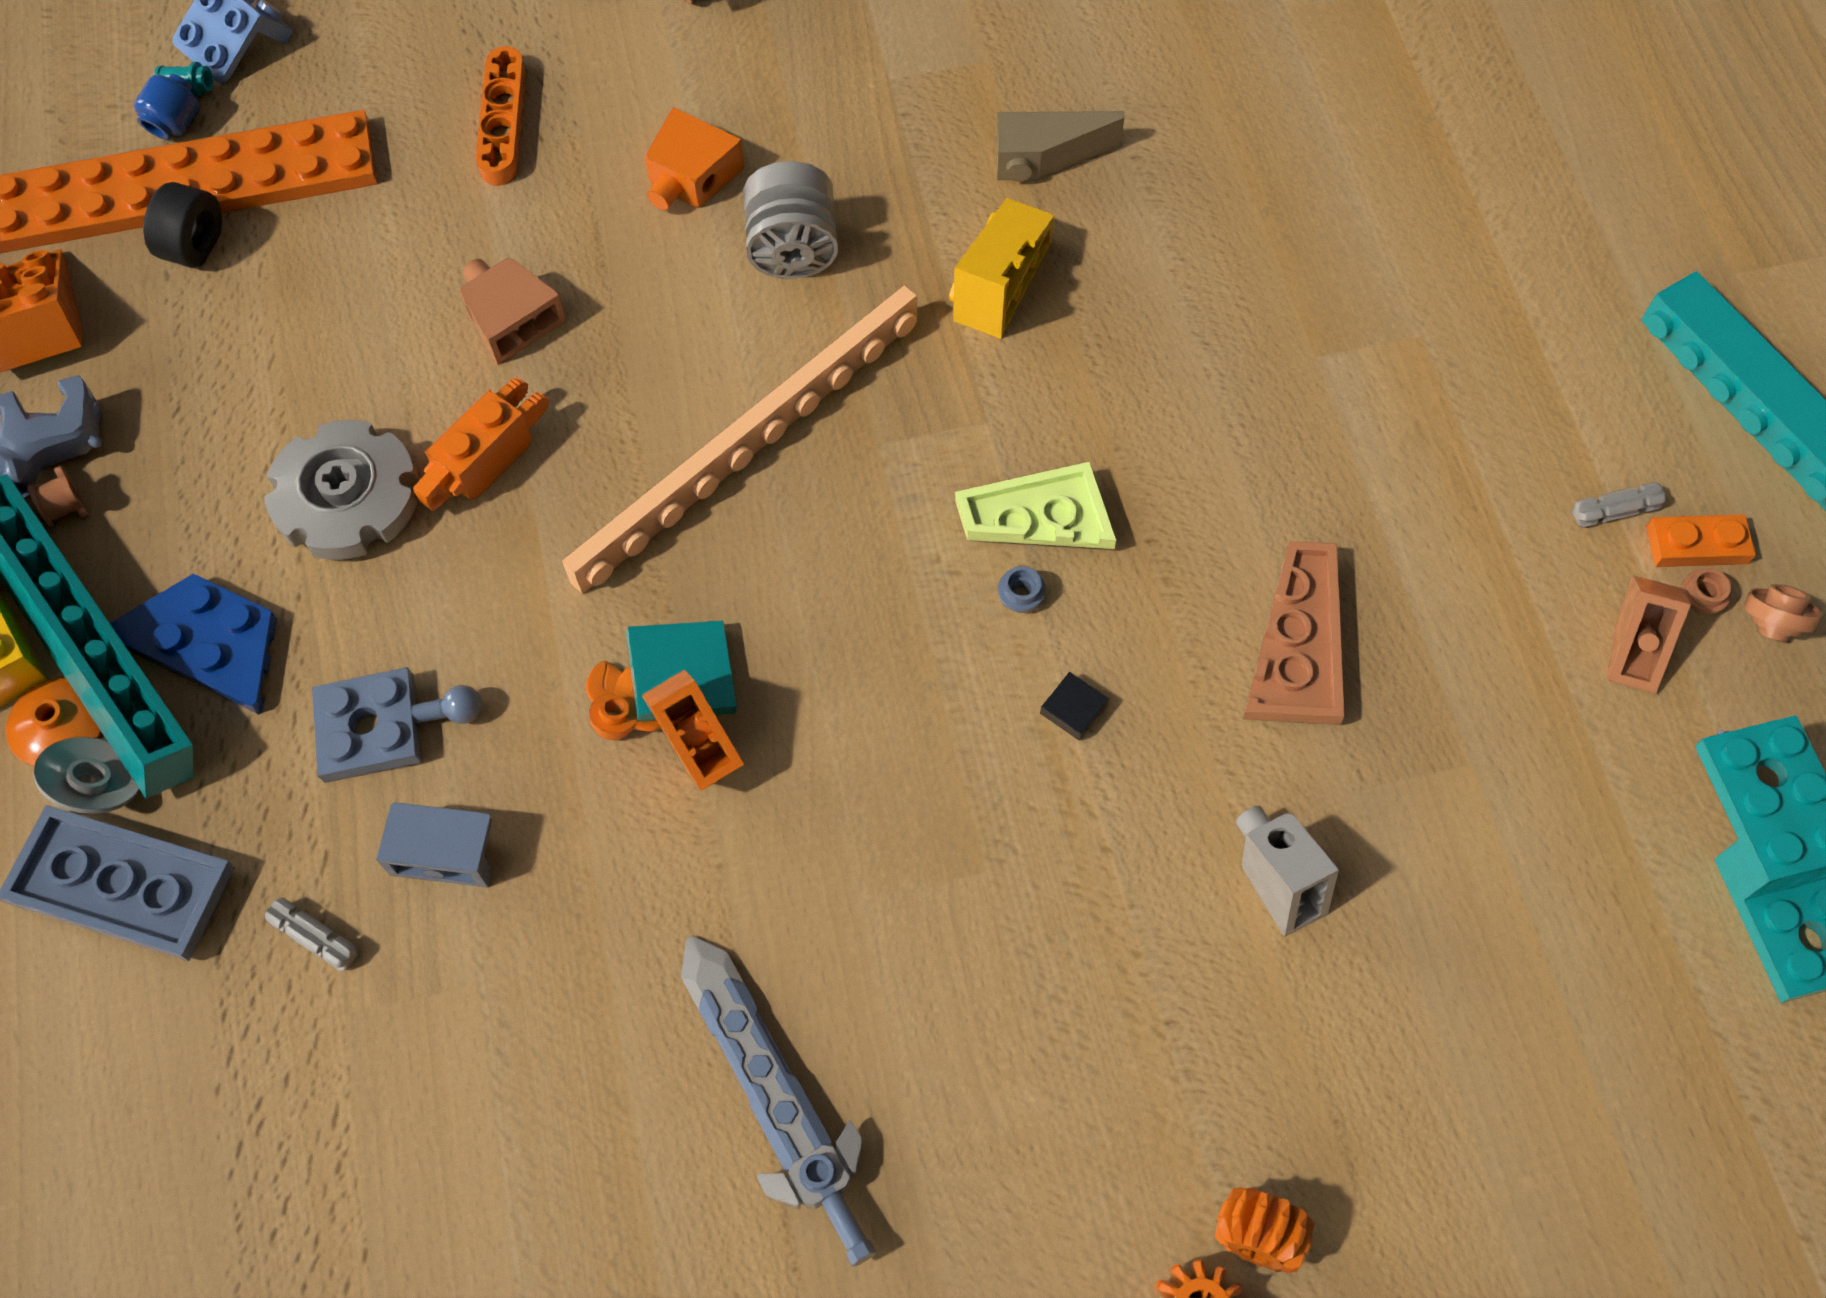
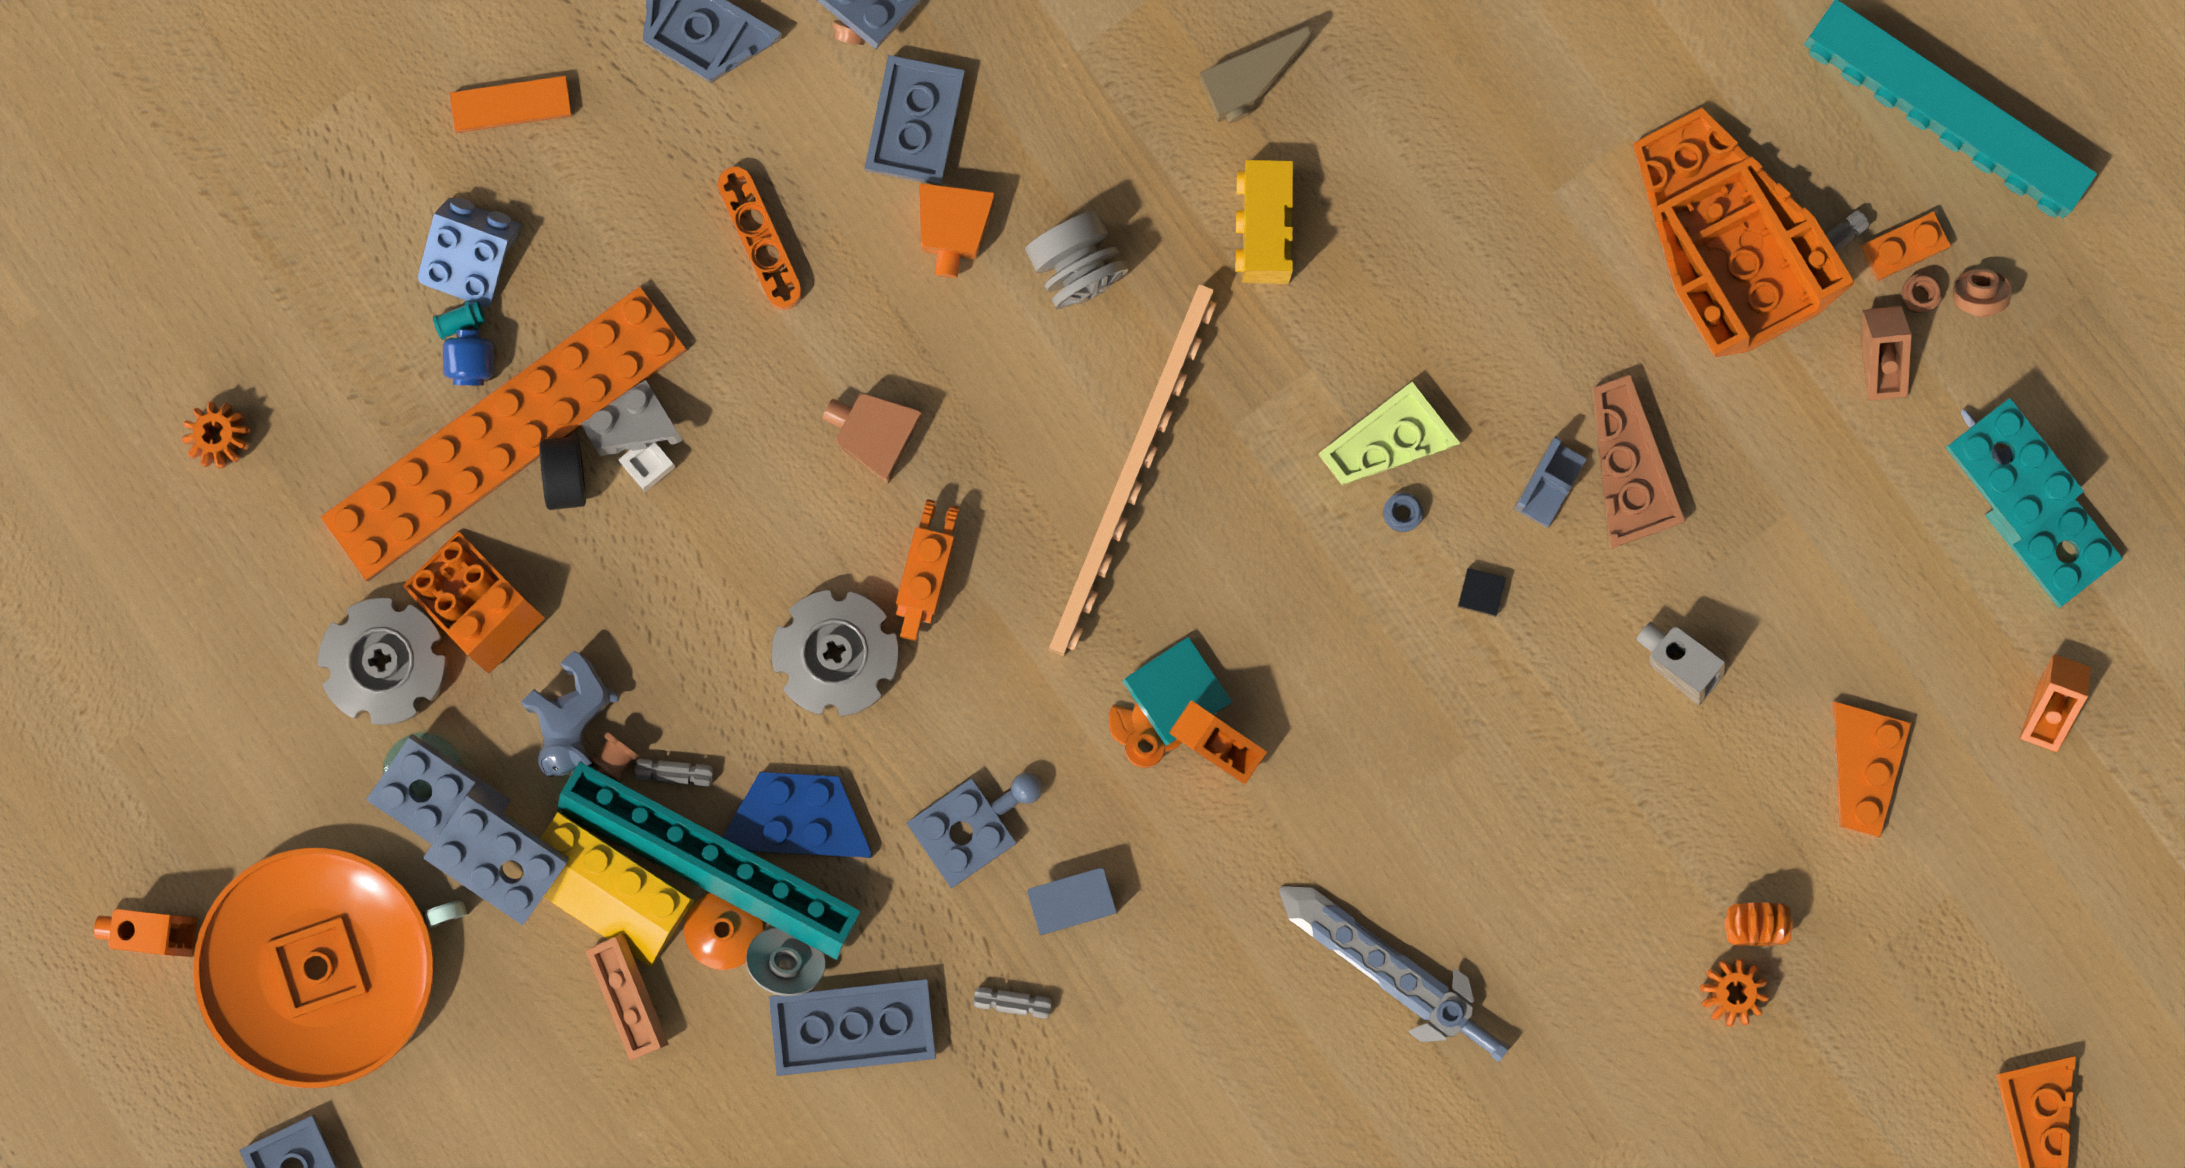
camera: 25 degrees left, 20 degrees up
(109, 541) = (673, 772): none -> light grey axle
(266, 213) = (630, 423): none -> light grey wing
(271, 253) = (647, 465): none -> white plate
(703, 69) = (914, 120): none -> sand blue plate
(1198, 619) = (1549, 483): none -> sand blue panel
(1475, 1093) = (1867, 766): none -> orange wing
(1509, 461) = (1734, 238): none -> orange wedge
(1753, 1114) = (2056, 702): none -> orange slope

